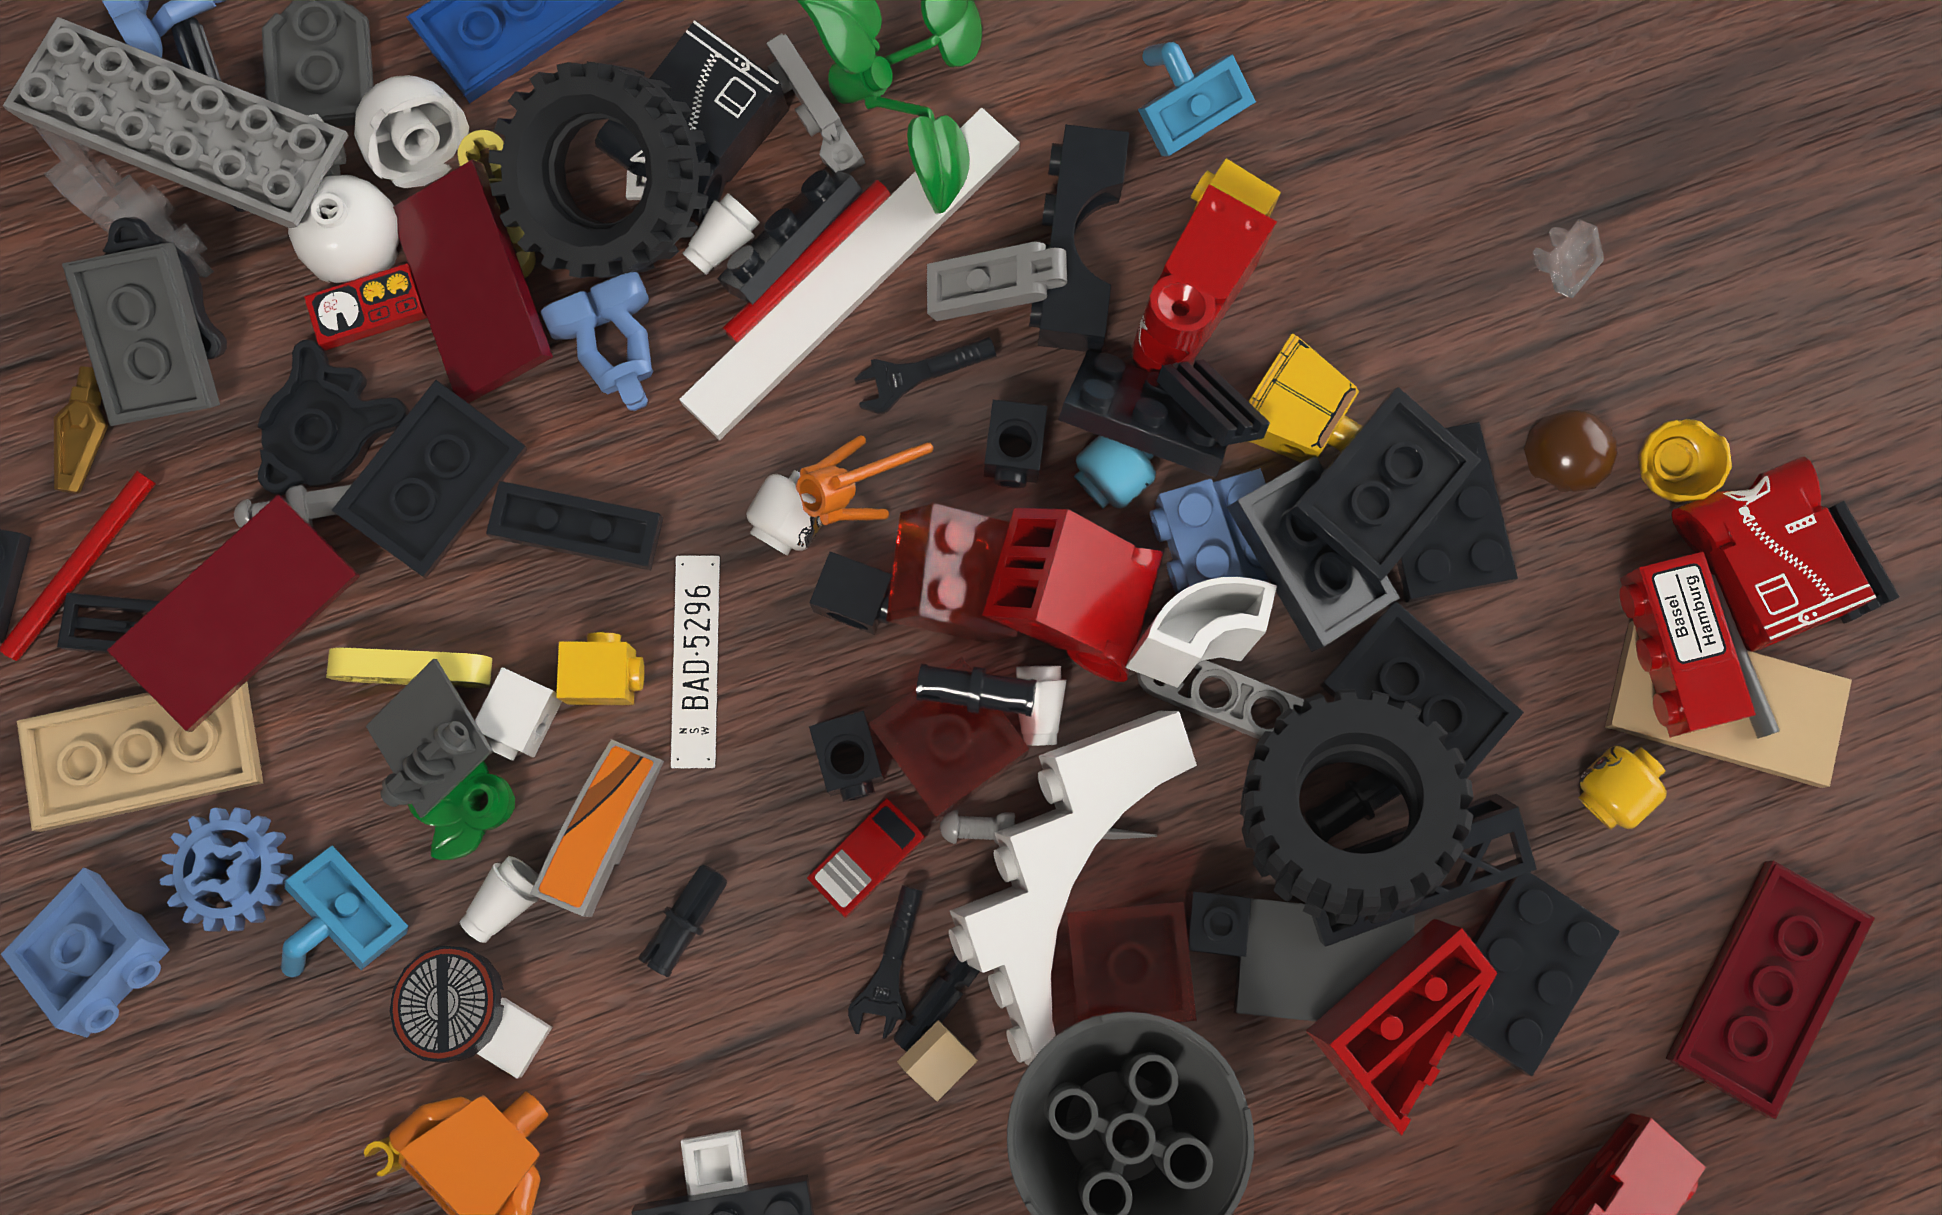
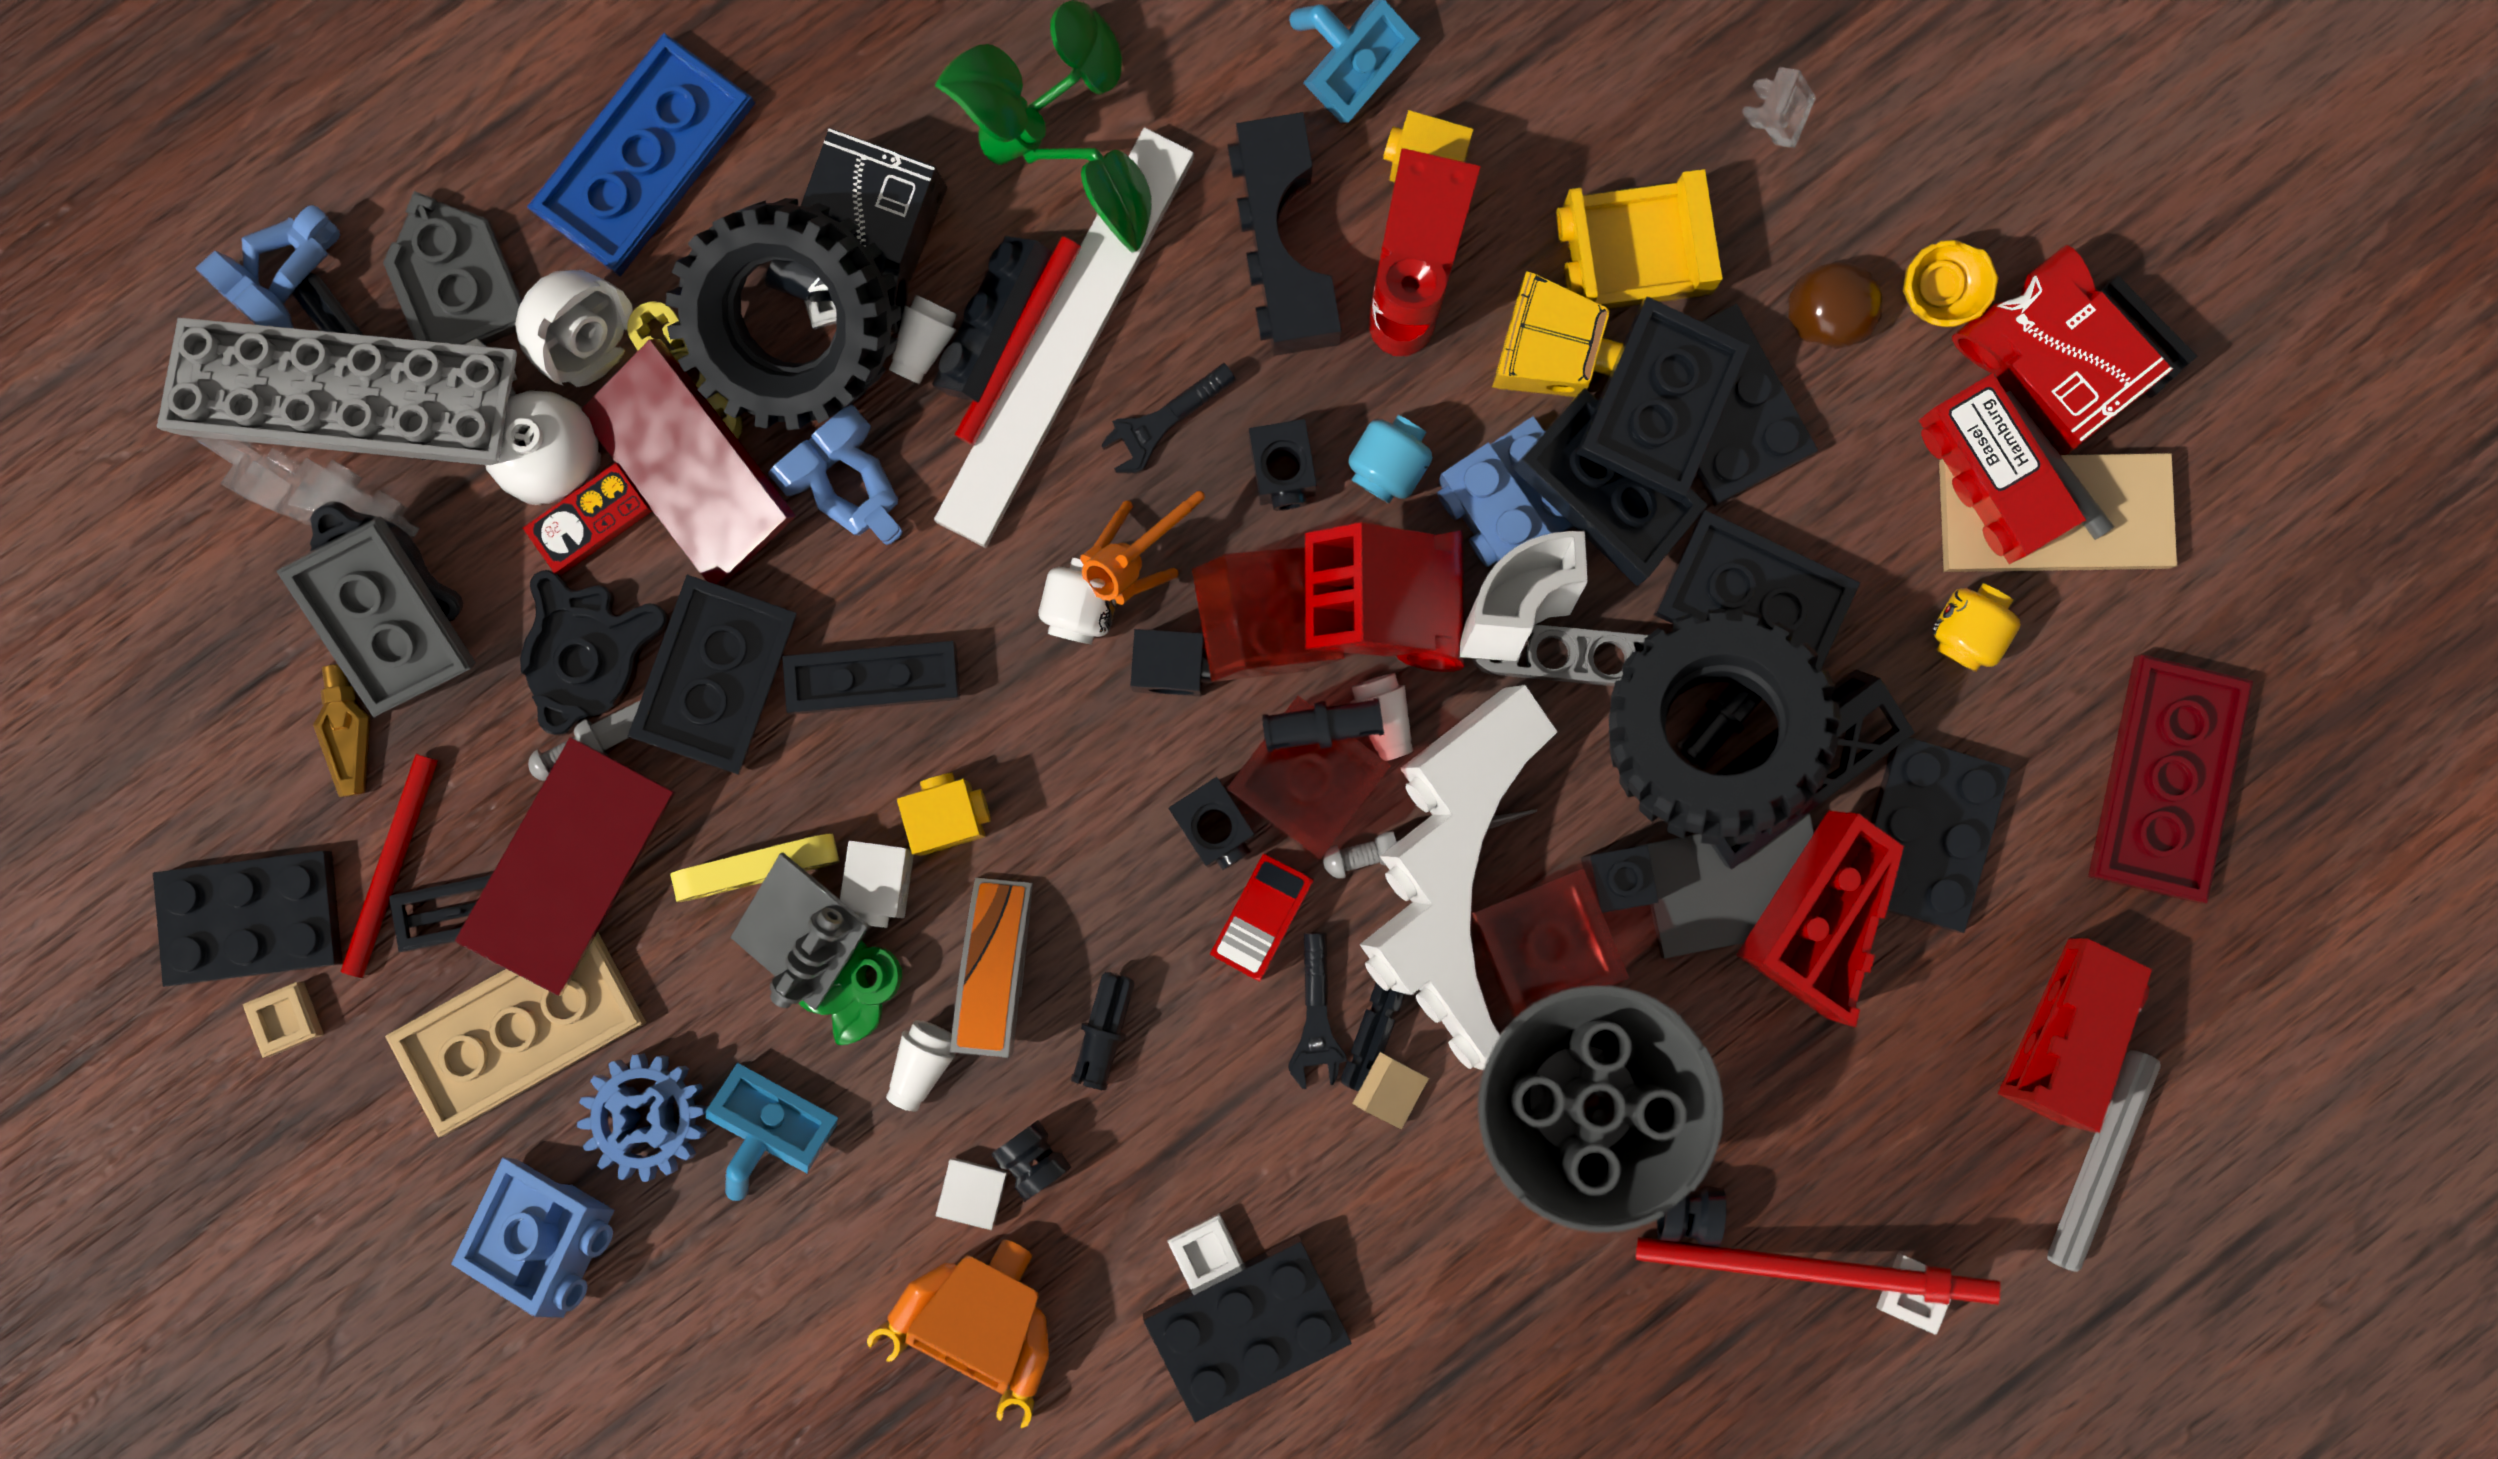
camera: 10 degrees left, 5 degrees up
(447, 1004) = (900, 1180): tile -> none
(570, 1010) = (1024, 1148): none -> black wheel
(695, 662) = (1032, 775): white sticker -> none
(815, 111) = (977, 182): light grey hinge -> none
(994, 280) = (1212, 305): light grey hinge -> none
(1137, 412) = (1409, 394): black plate -> none
(1213, 402) = (1468, 366): black tile -> none
(1407, 341) = (1641, 243): none -> yellow panel

